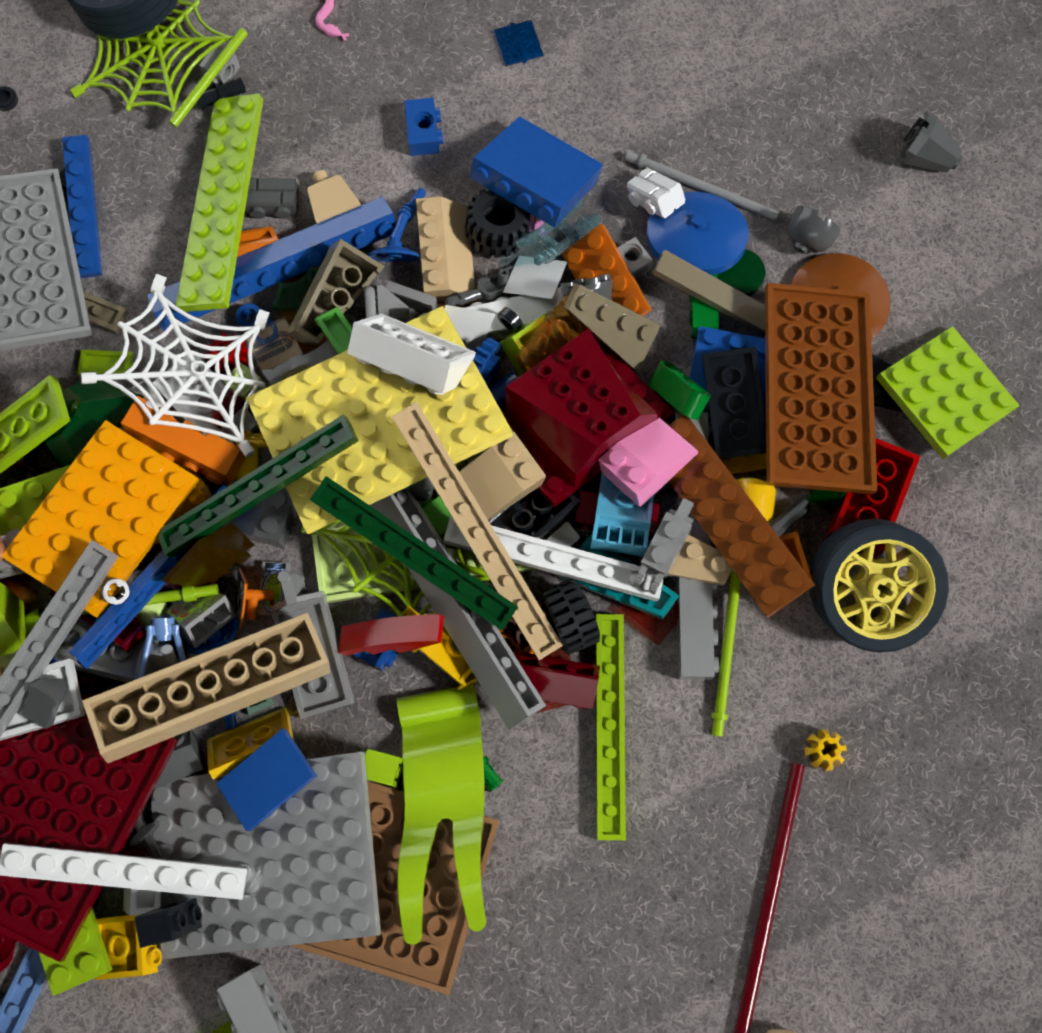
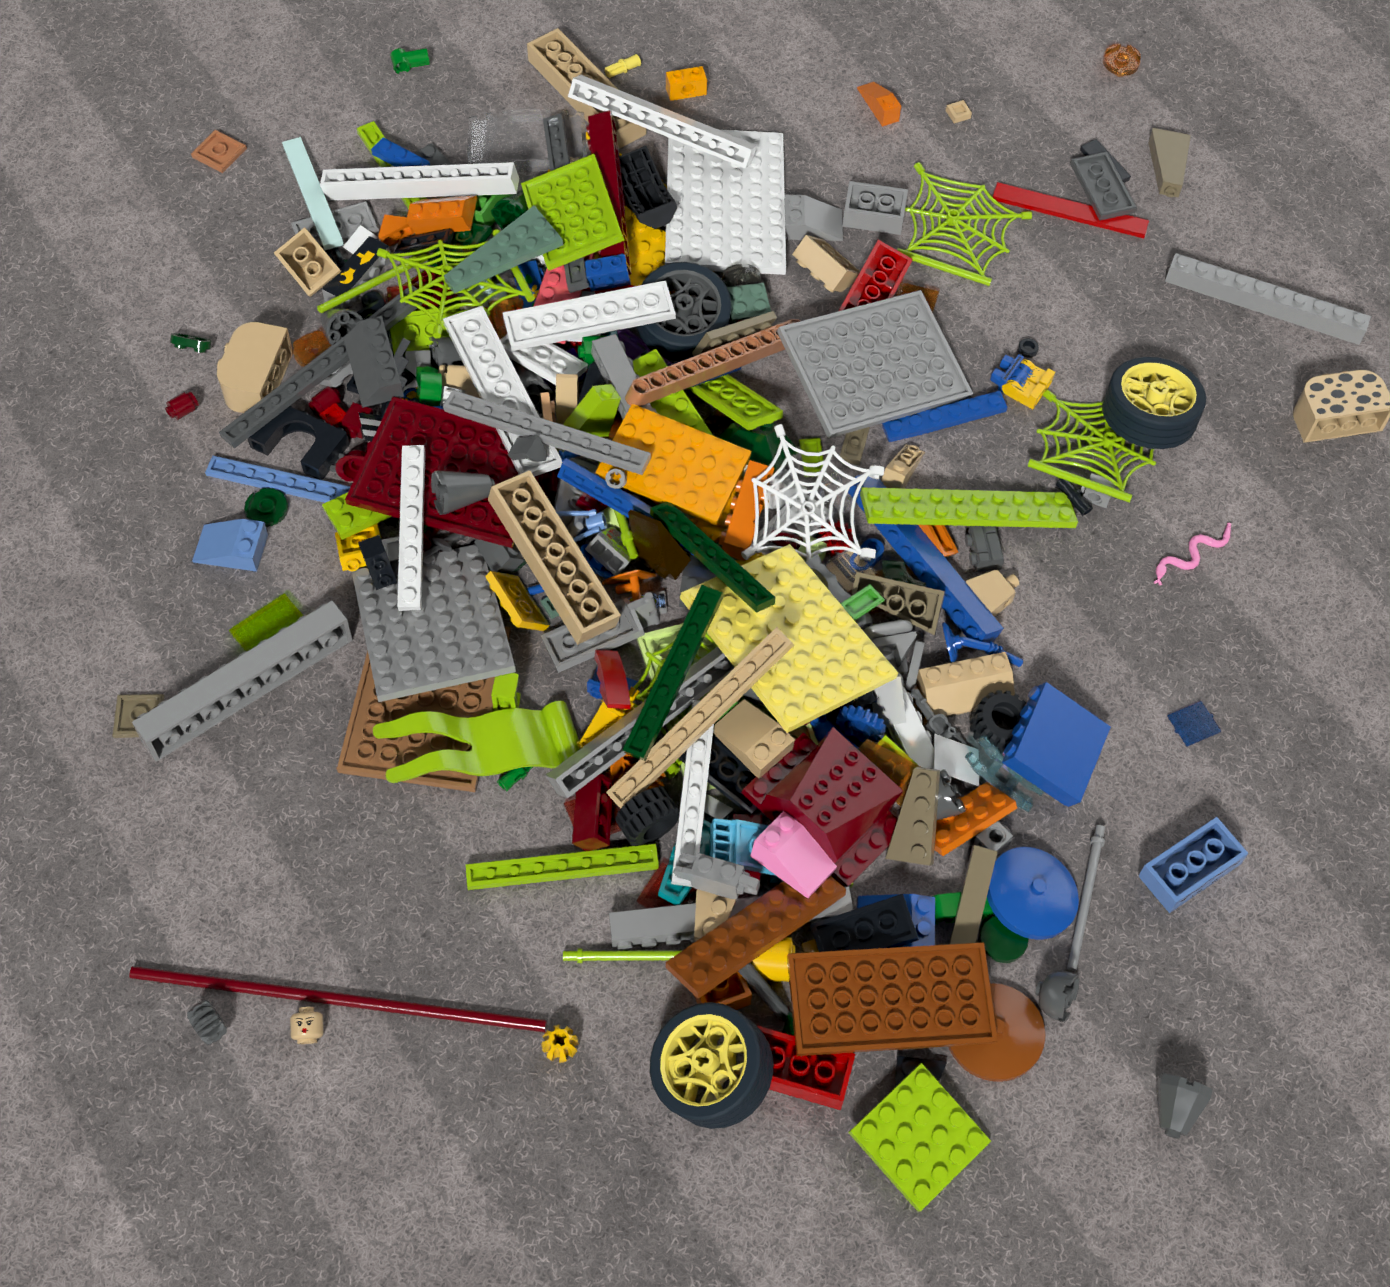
camera: 80 degrees right, 15 degrees down
(52, 111) = (1022, 380): none -> hips
(86, 800) = (459, 489): none -> dark grey cone
(144, 262) = (902, 467): none -> tan slope
(266, 780) = (487, 608): blue tile -> none
(409, 353) = (845, 646): white slope -> none
(419, 114) = (1090, 645): blue brick -> none
(510, 319) = (905, 736): black tile -> none
(655, 193) = (1061, 848): white brick -> none
(679, 390) = (869, 885): green beam -> none
(684, 76) = (1193, 864): none -> medium blue brick

